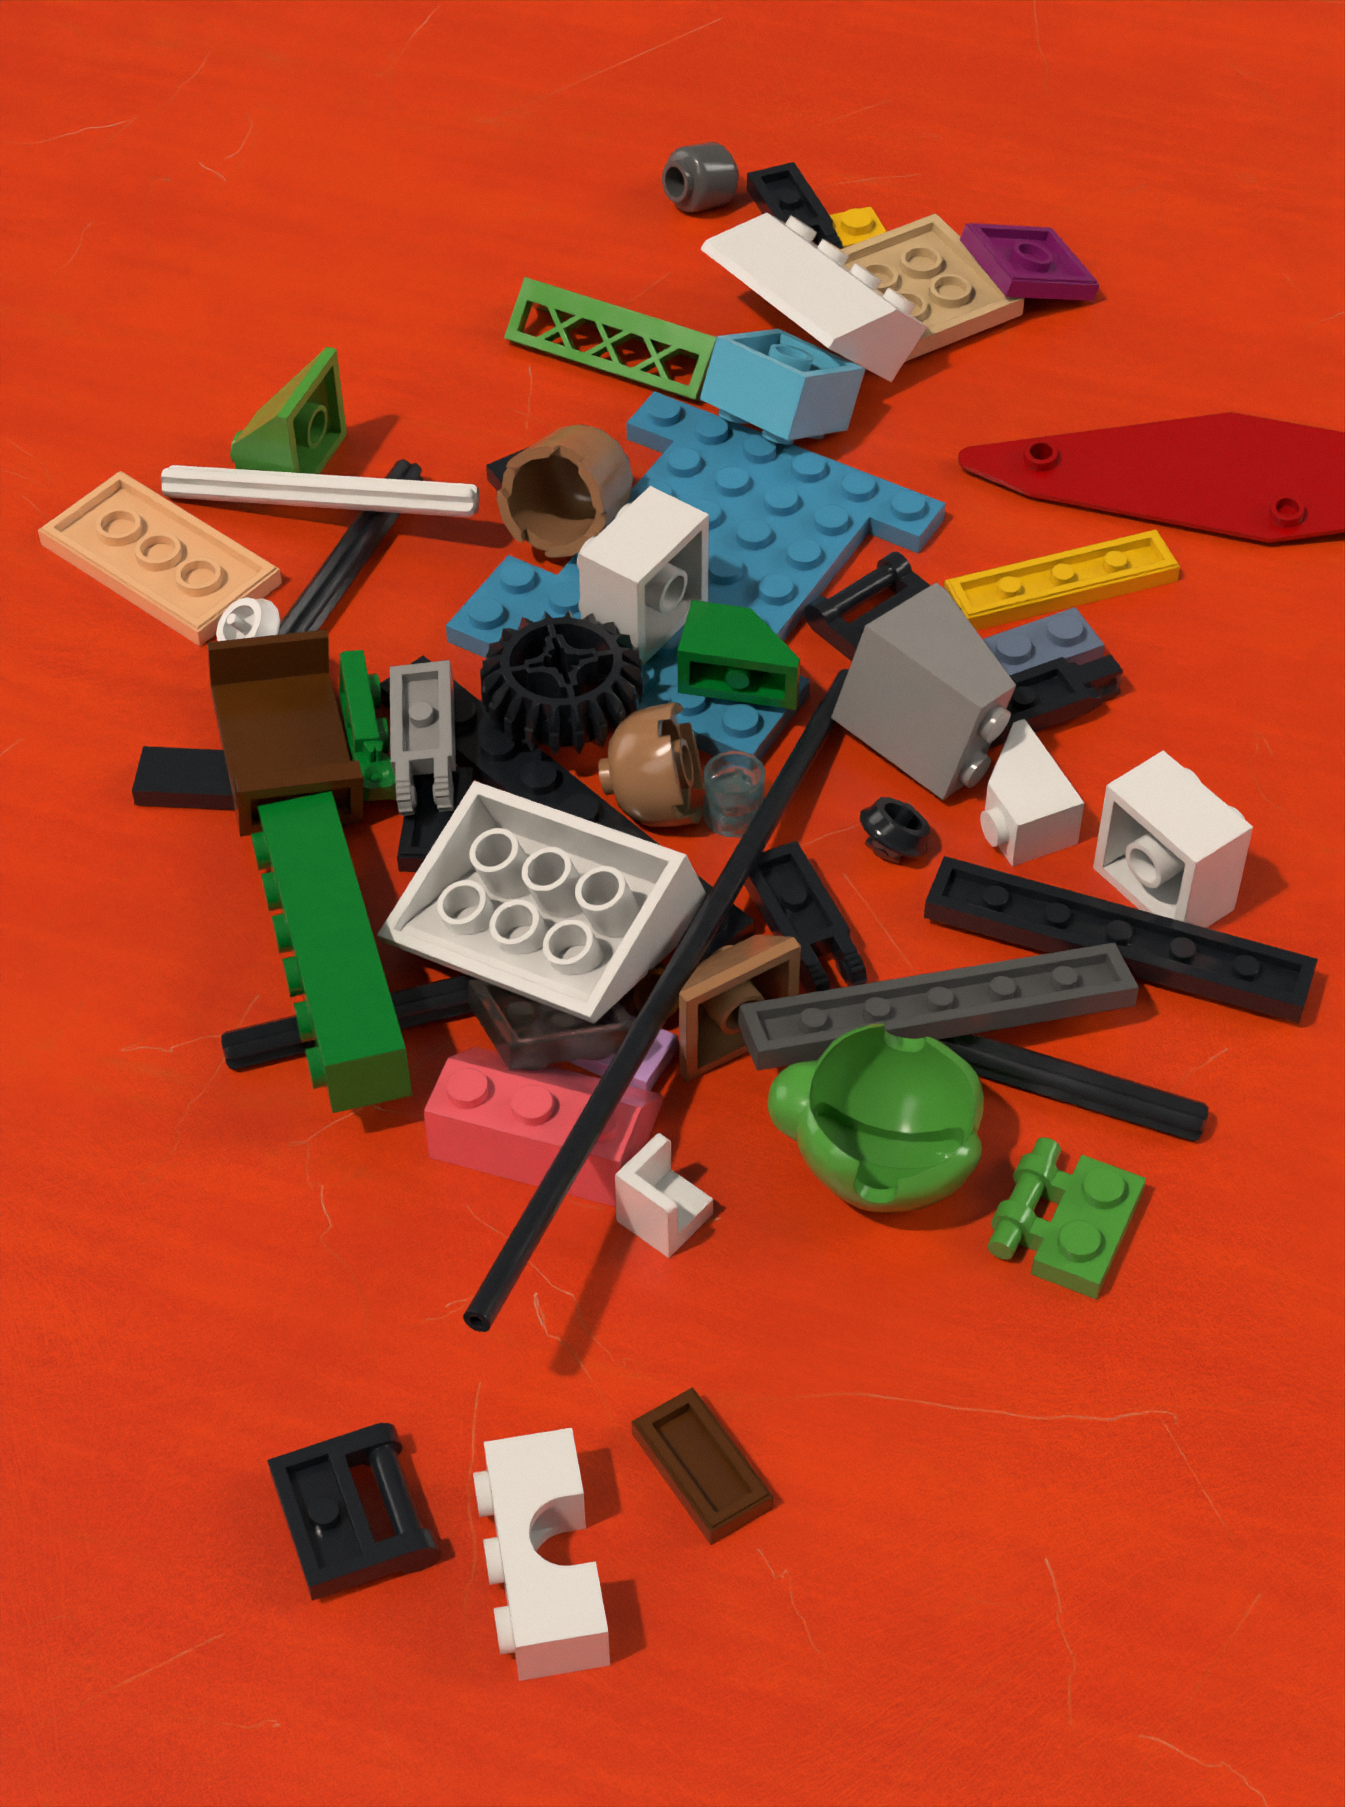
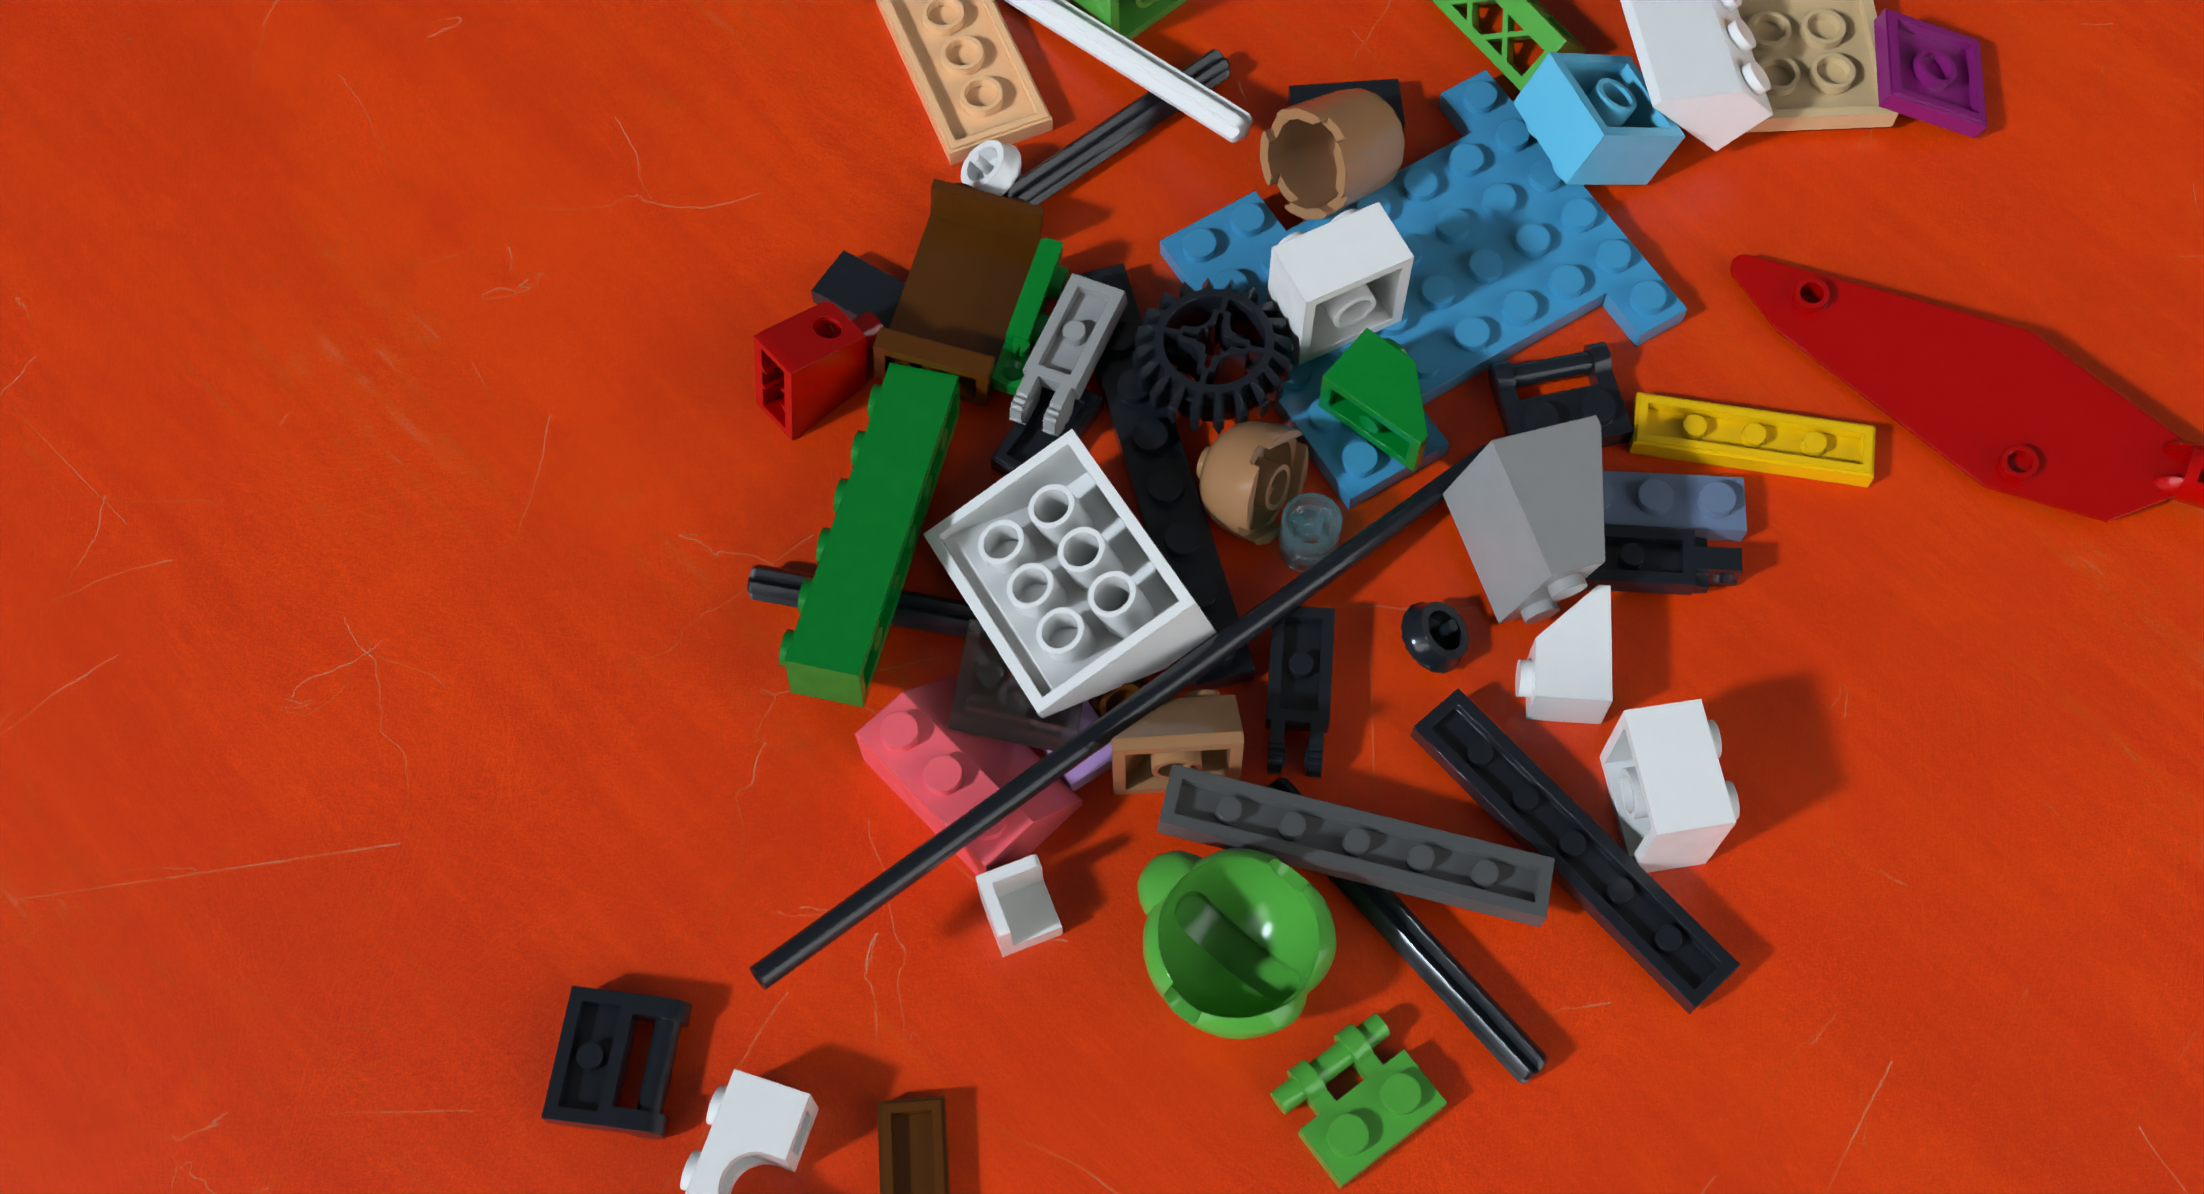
camera: 30 degrees right, 15 degrees up
(177, 845) = (811, 365): none -> red torso

